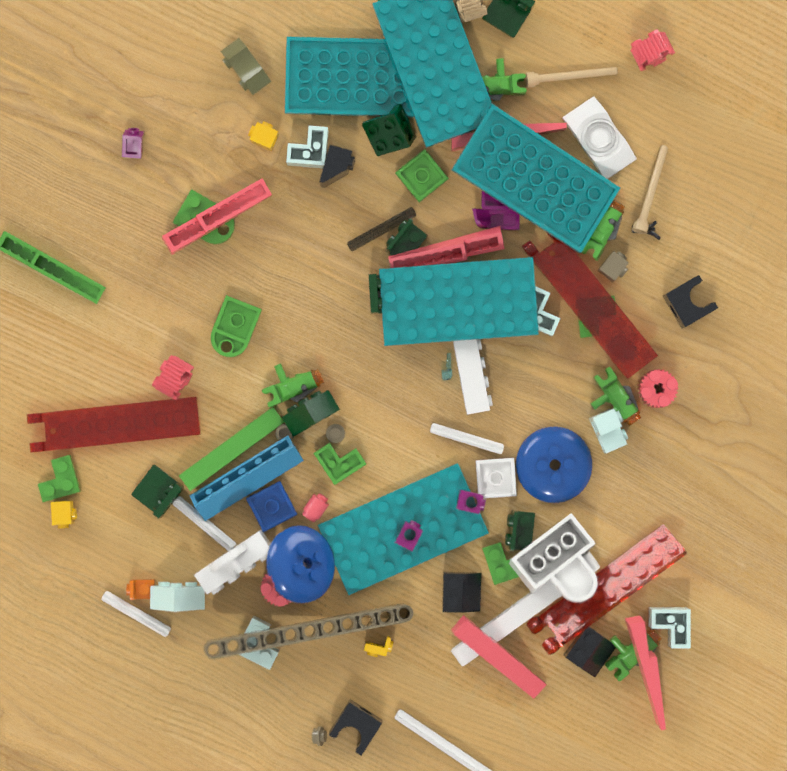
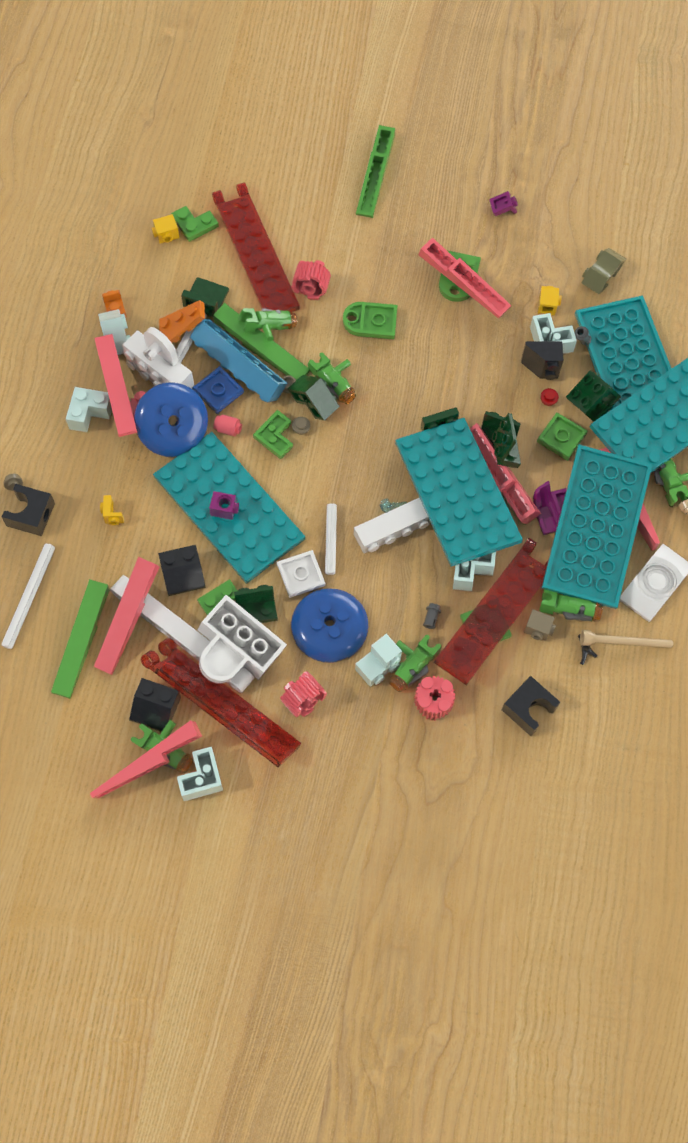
camera: 75 degrees right, 20 degrees down
(136, 613) = (91, 307): white axle -> none
(188, 528) = (182, 320): none -> orange wing
(209, 435) = (267, 320): none -> bright green piece
(249, 611) = (115, 385): none -> coral slope
(321, 121) = (583, 335): none -> dark grey pin
(356, 625) = (106, 432): dark tan beam -> none
(374, 173) = (549, 397): none -> red plate
(381, 229) = (489, 406): clear smoke axle -> none
(425, 238) = (506, 443): none -> dark green bracket
(464, 495) = (269, 543): magenta brick -> none
(504, 705) = (80, 638): none -> bright green slope
(574, 365) = (431, 616): none -> dark grey pin
(623, 510) = (302, 695): none -> coral brick

